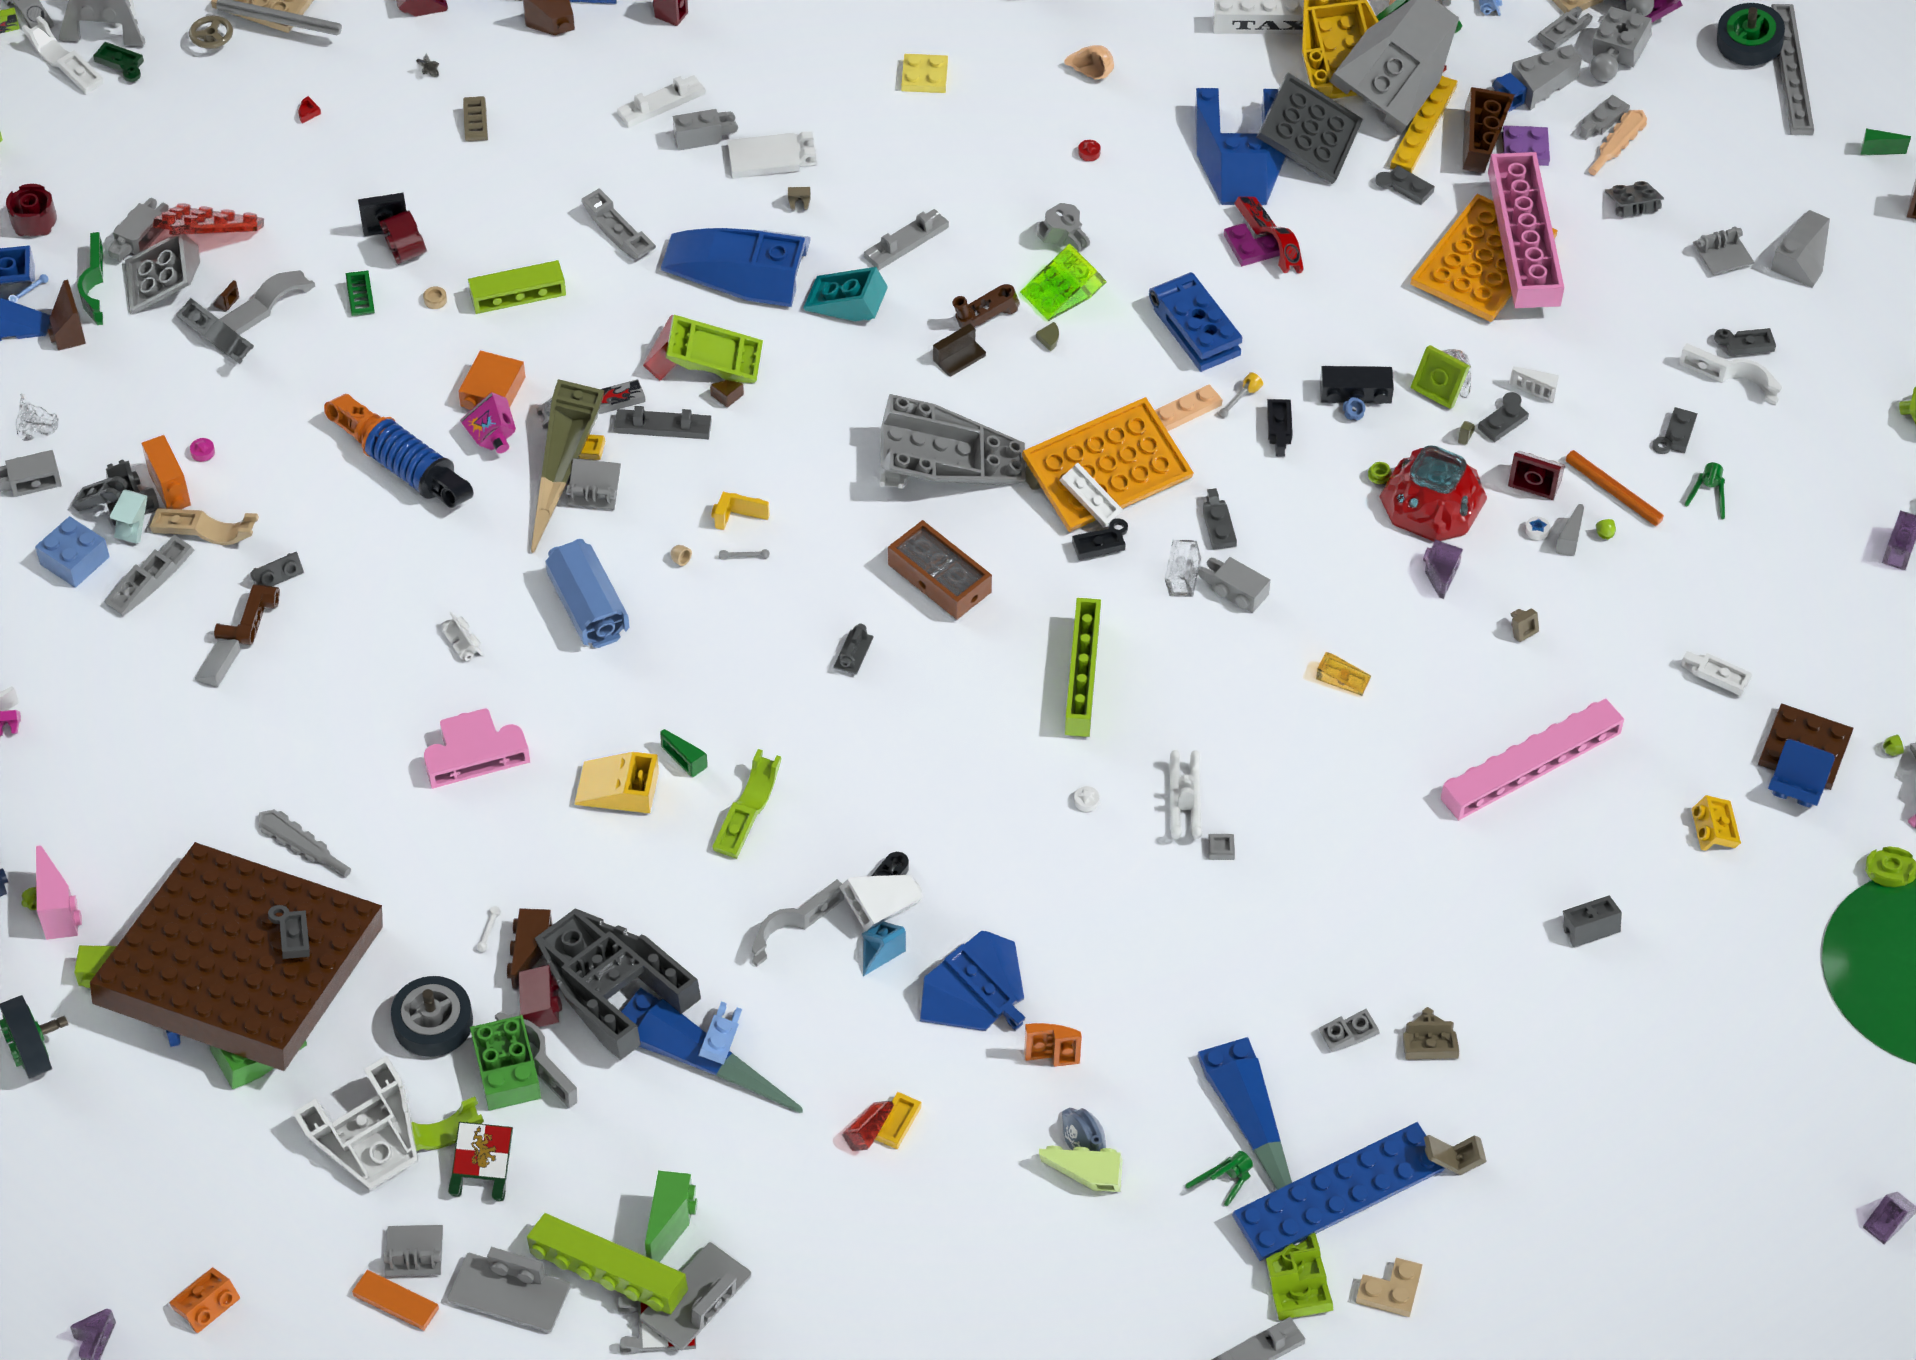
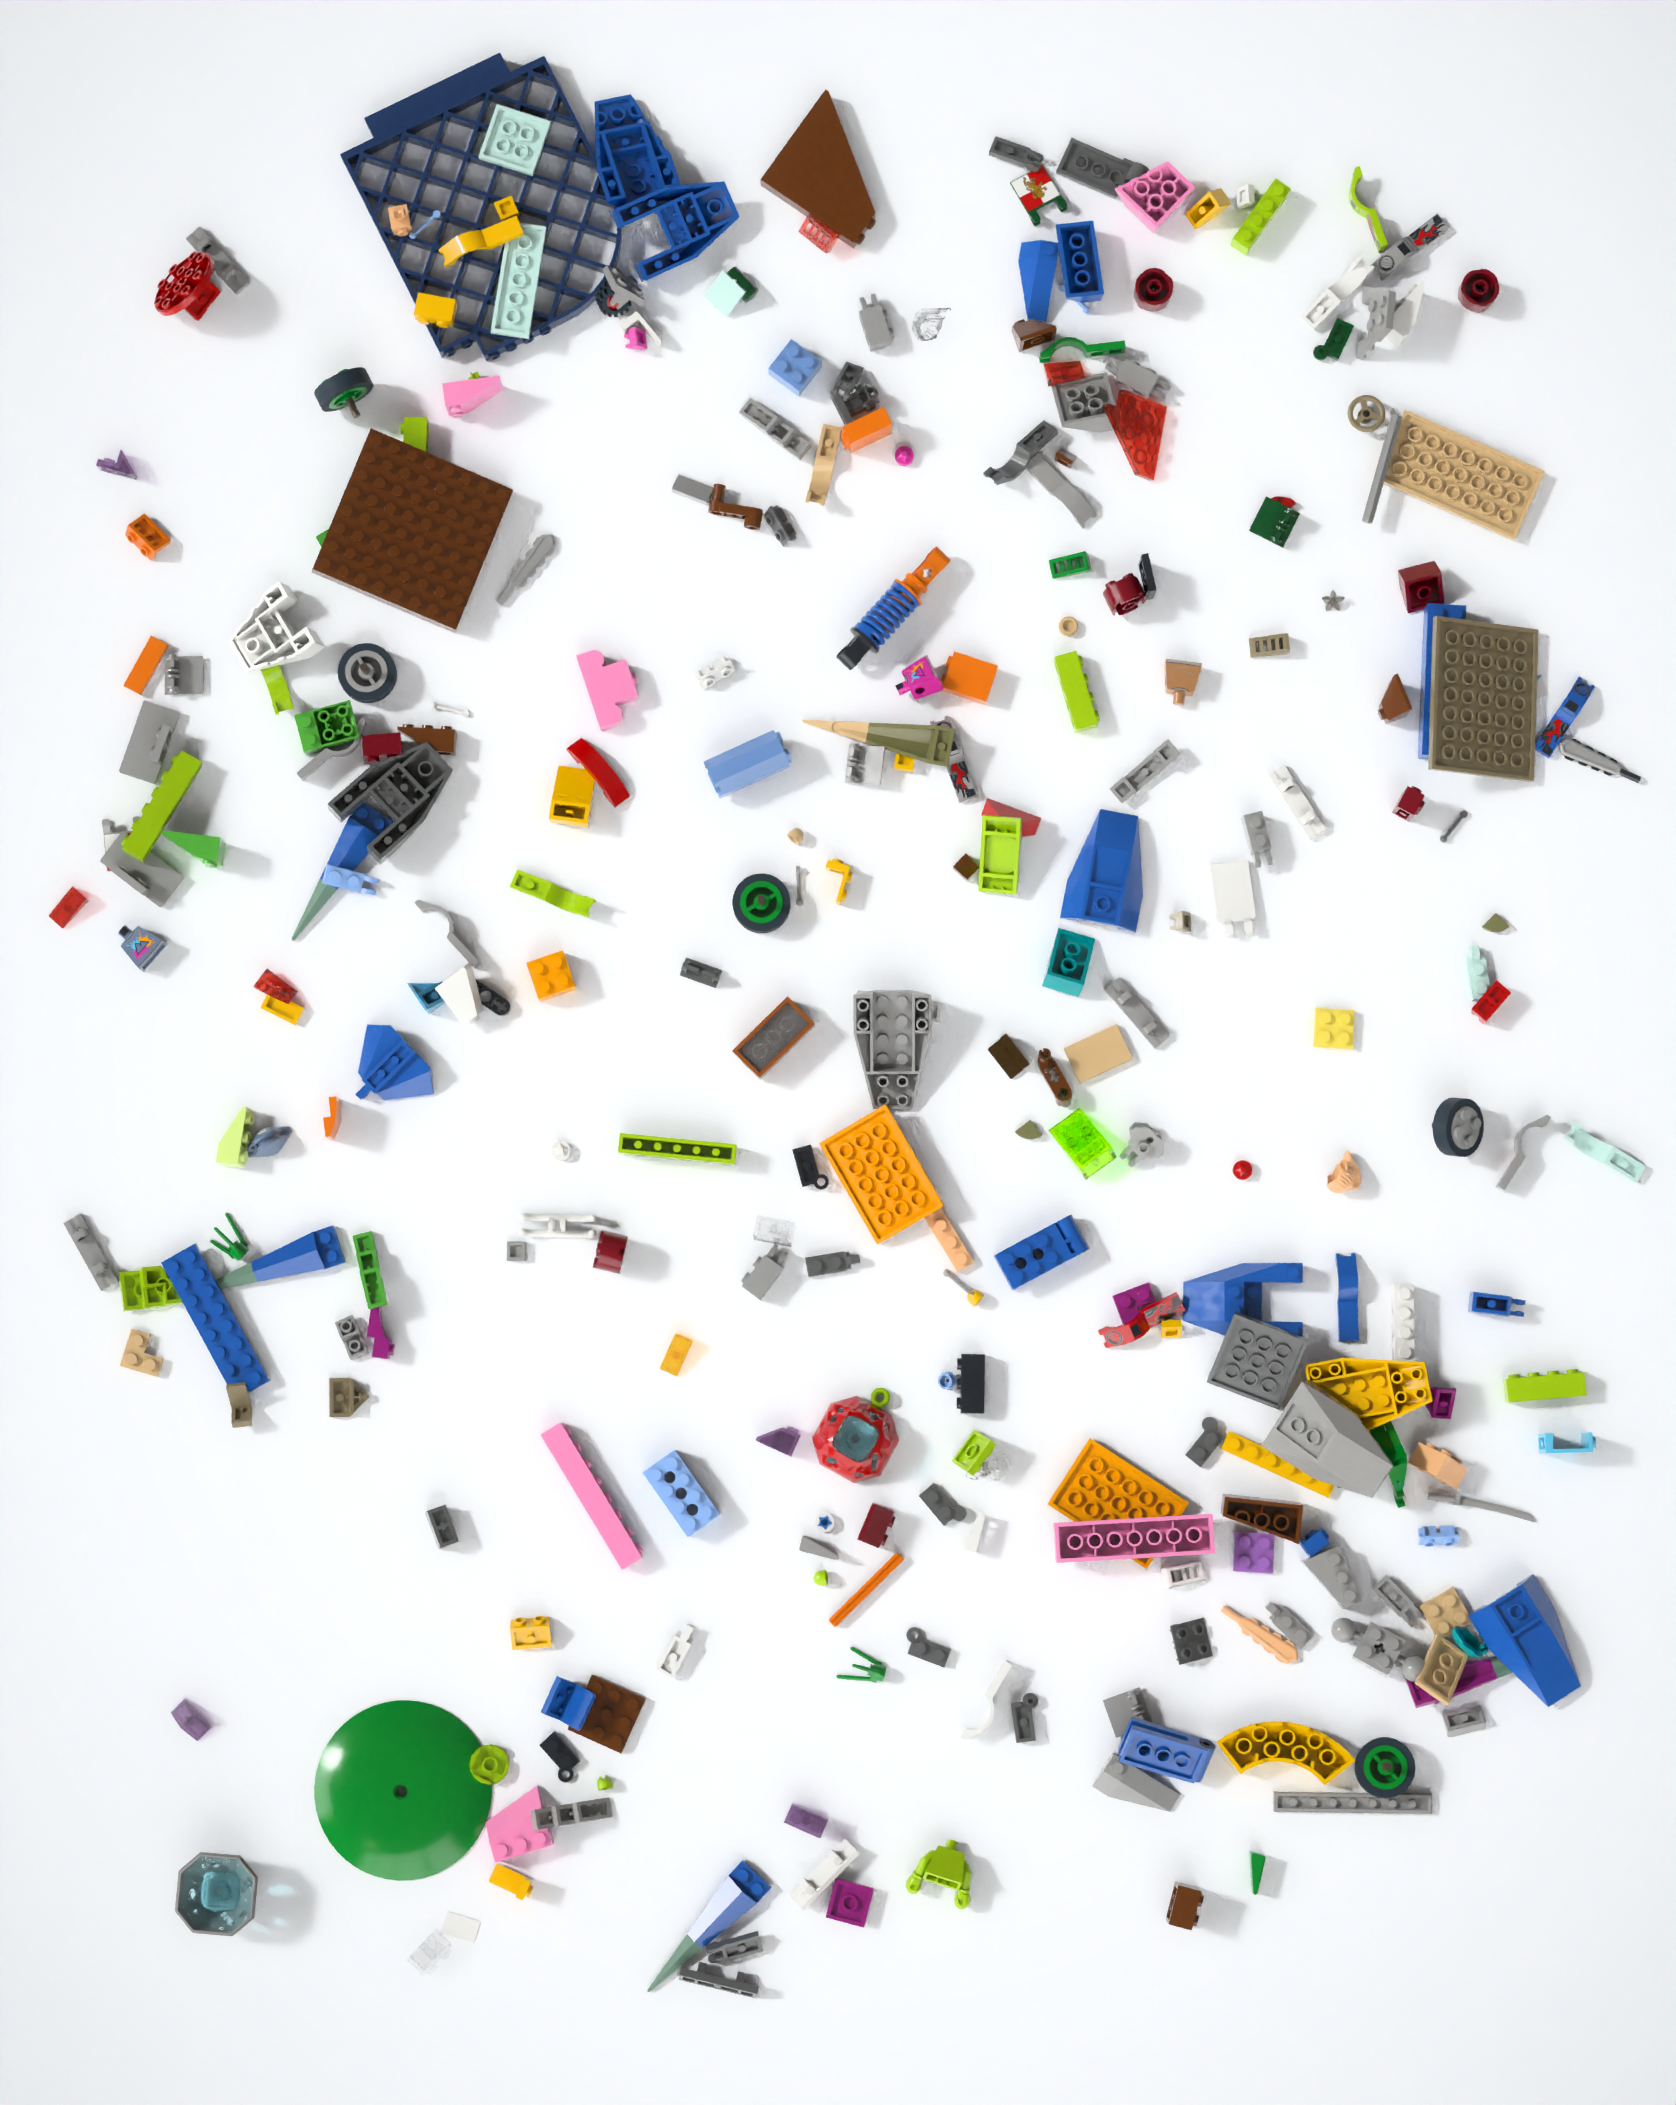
camera: 90 degrees right, 30 degrees up
(119, 299) = (1063, 372): none -> clear red slope
(129, 515) = (824, 406): light aqua slope -> none
(292, 930) = (416, 566): dark grey hinge -> none
(329, 111) = (1274, 521): none -> dark green hinge
(483, 1154) = (251, 715): flag -> none
(509, 193) = (1181, 679): none -> medium nougat torso
(560, 772) = (600, 771): none -> red slope
(663, 423) = (932, 817): dark grey hinge -> none
(684, 753) = (599, 846): green slope -> none
(766, 583) = (761, 903): none -> wheel
(808, 1293) = (141, 946): none -> sand blue torso
(857, 804) = (551, 976): none -> light orange brick
(955, 272) = (1098, 1053): none -> tan tile
(1090, 495) = (844, 1158): white hinge -> none
(1219, 732) = (610, 1251): none -> dark red brick
(1239, 64) = (1347, 1297): none -> blue piece
(1258, 1002) = (370, 1270): none -> bright green slope
(1277, 208) = (1171, 1328): none -> yellow plate
(1279, 424) = (931, 1317): black hinge -> none
(1334, 999) = (382, 1345): none -> magenta slope
(1466, 432) = (924, 1472): olive tile -> none
(1519, 664) = (667, 1493): none -> light blue brick
(1524, 623) = (722, 1501): dark tan tile -> none
(1560, 207) = (1167, 1579): none -> white slope
(1738, 109) = (1288, 1744): none -> yellow brick
(1763, 208) = (1165, 1750): none -> hinge
(1866, 794) = (561, 1755): none -> black hinge

